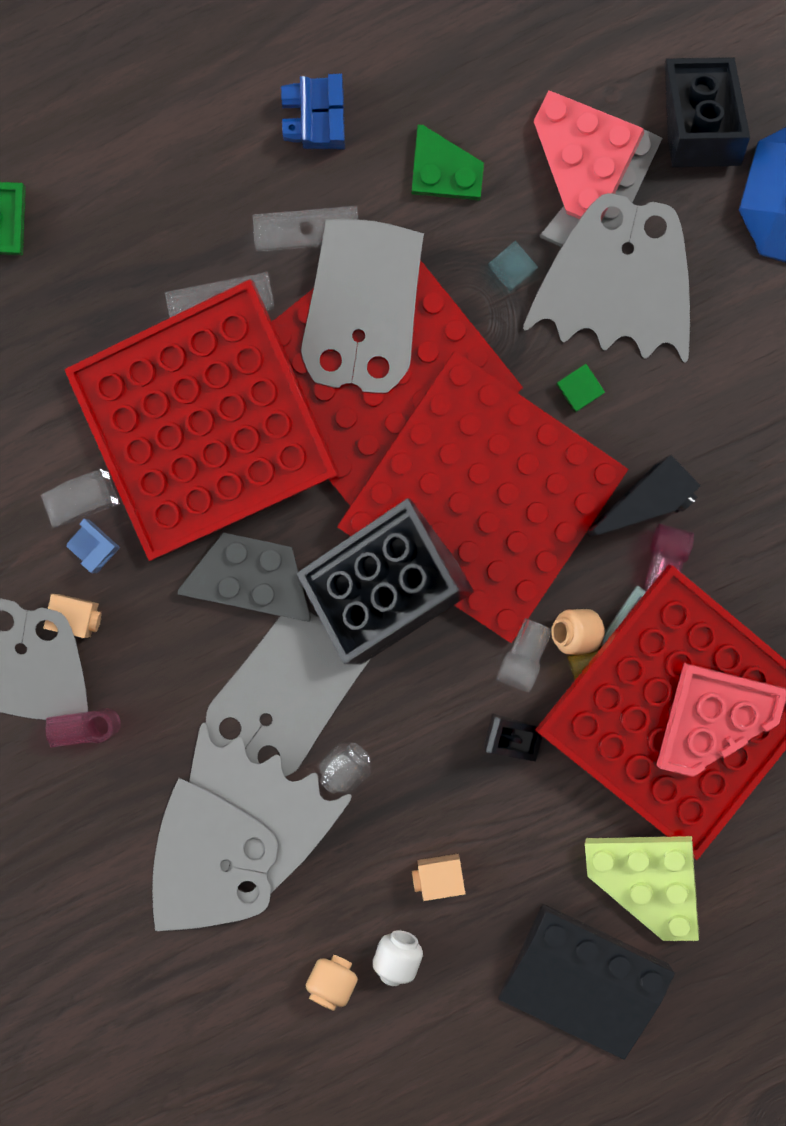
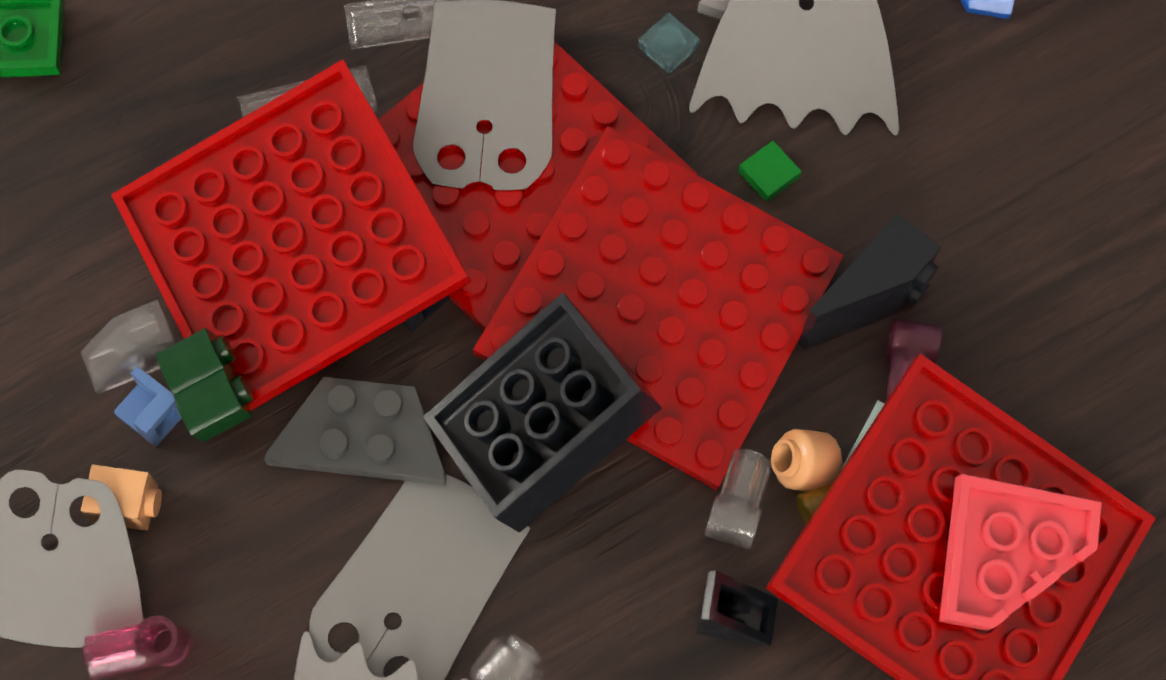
camera: 10 degrees left, 20 degrees down
(135, 538) = (205, 384): none -> dark green brick

